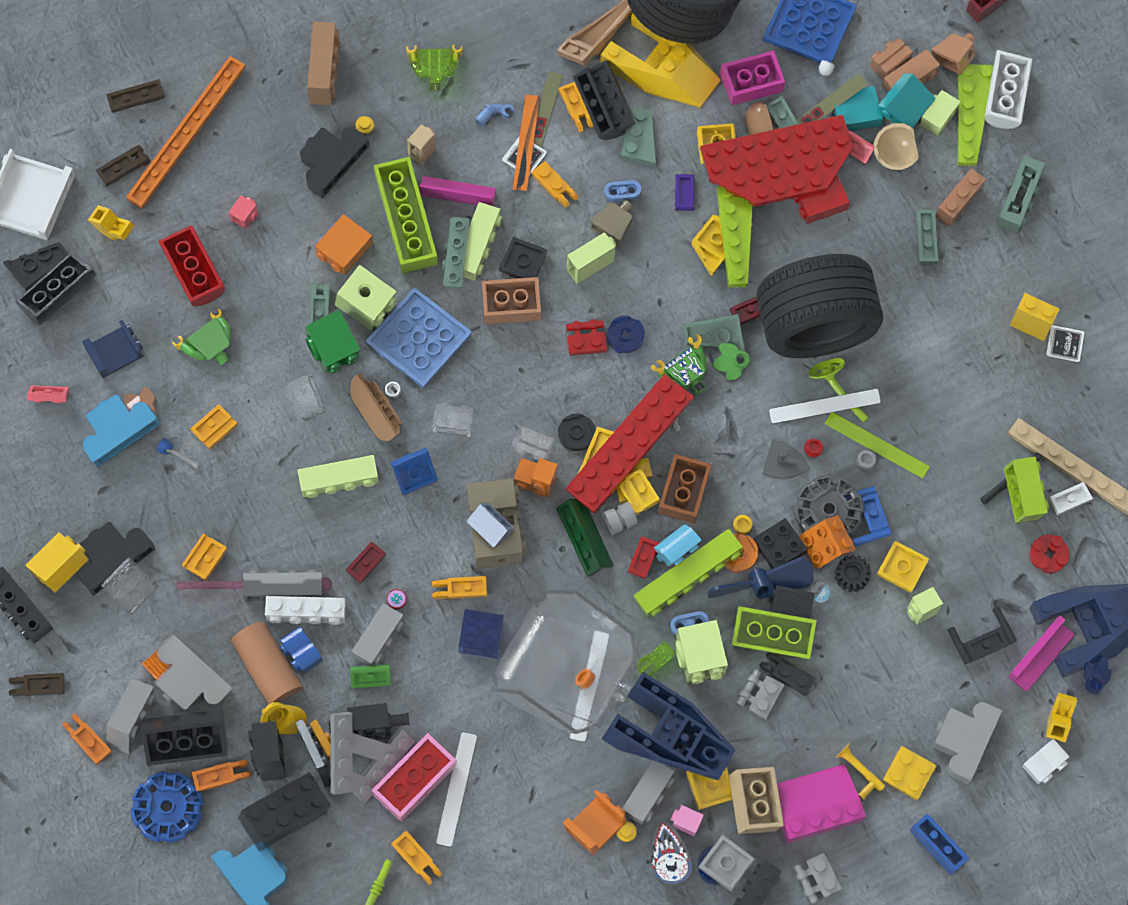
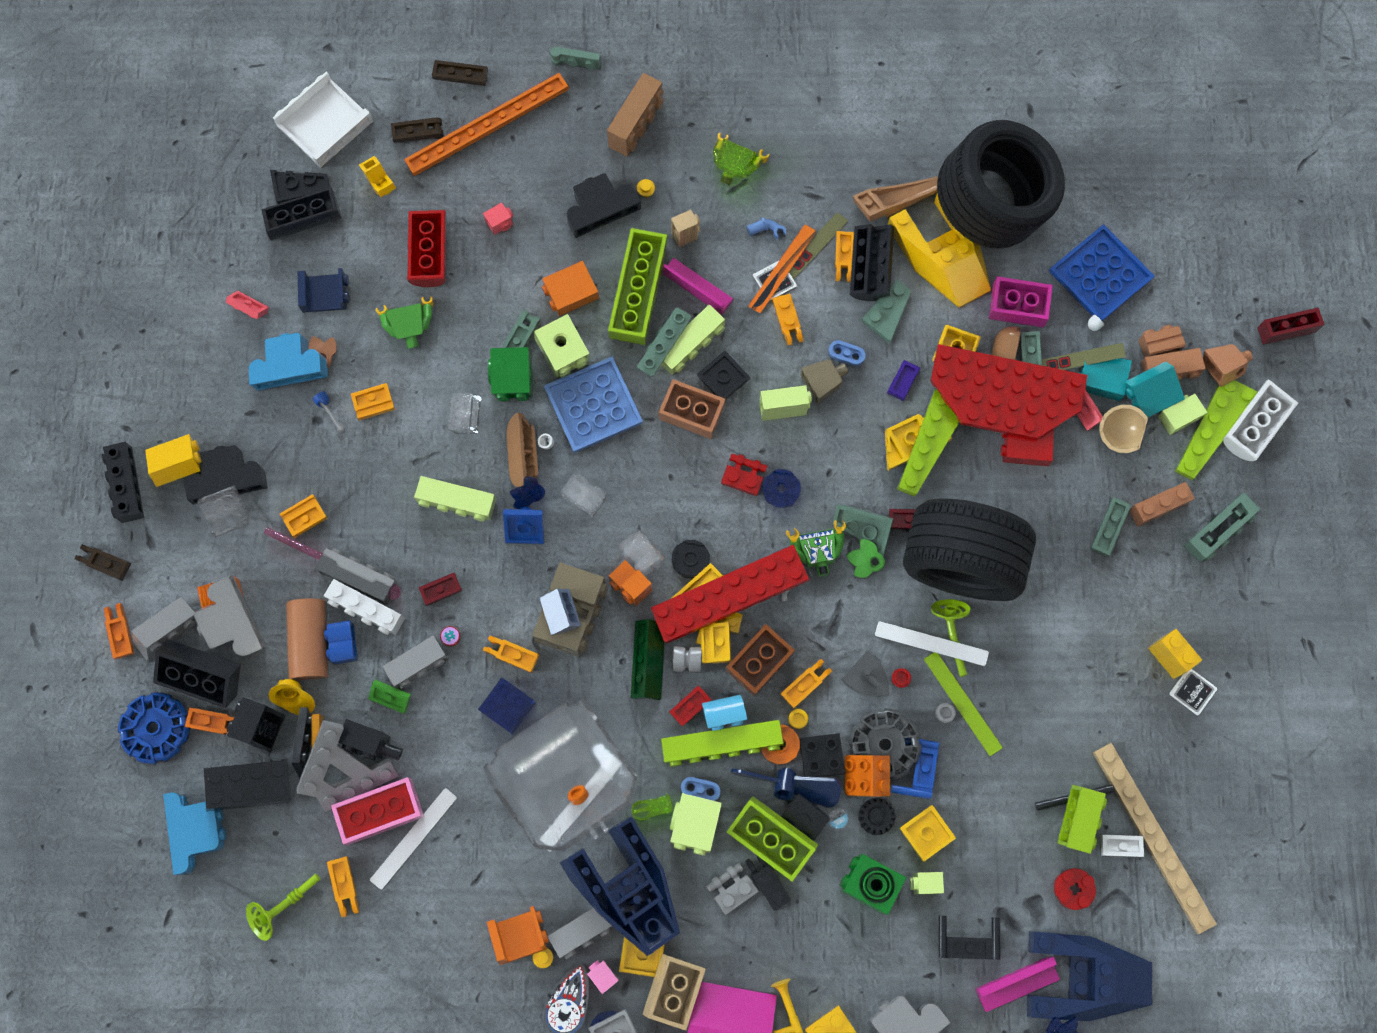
camera: 30 degrees right, 5 degrees up
(237, 36) = (575, 58): none -> sand green plate
(402, 441) = (528, 493): none -> clear blue plate
(733, 493) = (804, 685): none -> light orange hinge
(866, 633) = (858, 883): none -> green brick

